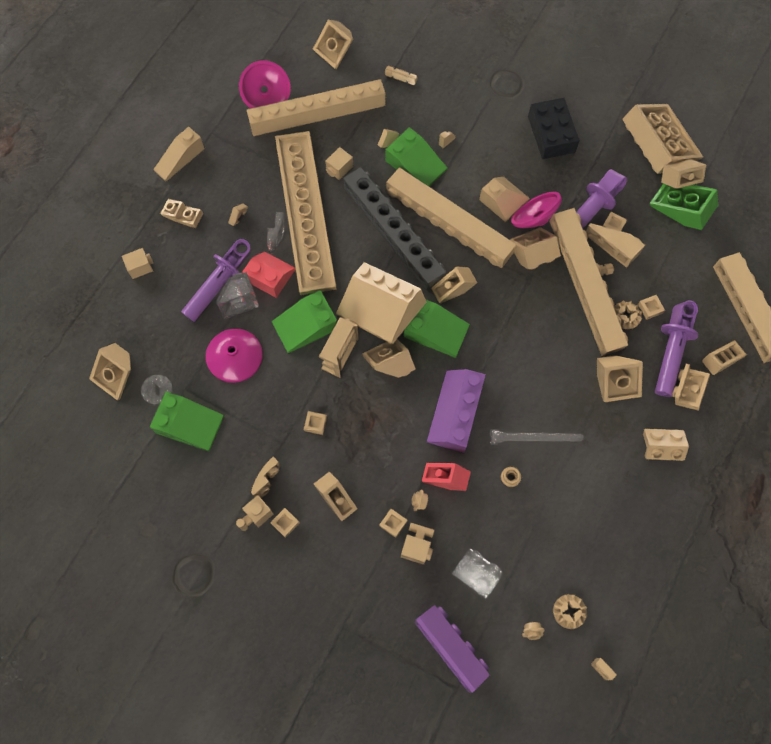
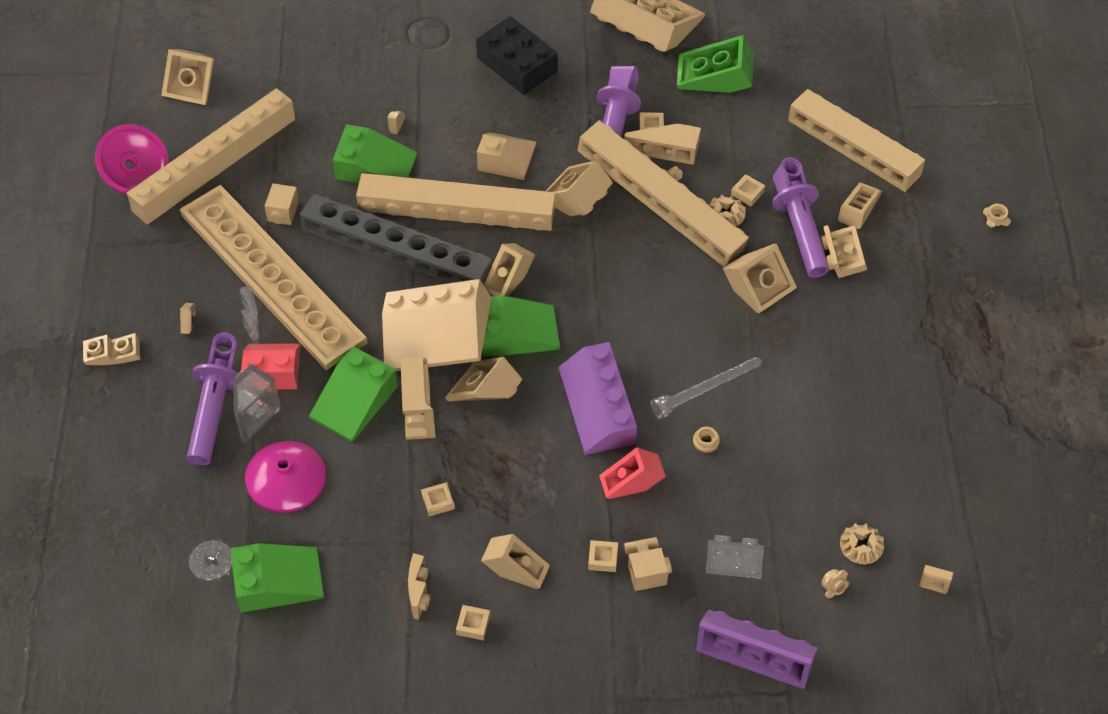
camera: 30 degrees left, 15 degrees down
(111, 370) = (140, 566): tan slope -> none
(138, 263) = (92, 430): tan brick -> none
(180, 152) = (65, 283): tan slope -> none
(256, 512) = (431, 629): tan brick -> none
(387, 138) = (323, 151): tan tile -> none
(401, 75) = (294, 77): tan axle -> none
(419, 500) = (618, 516): tan plate -> none
(537, 210) = (556, 146): dark pink dish -> none
(665, 444) = (854, 321): tan bracket -> none
(683, 173) = (695, 37): tan brick -> none

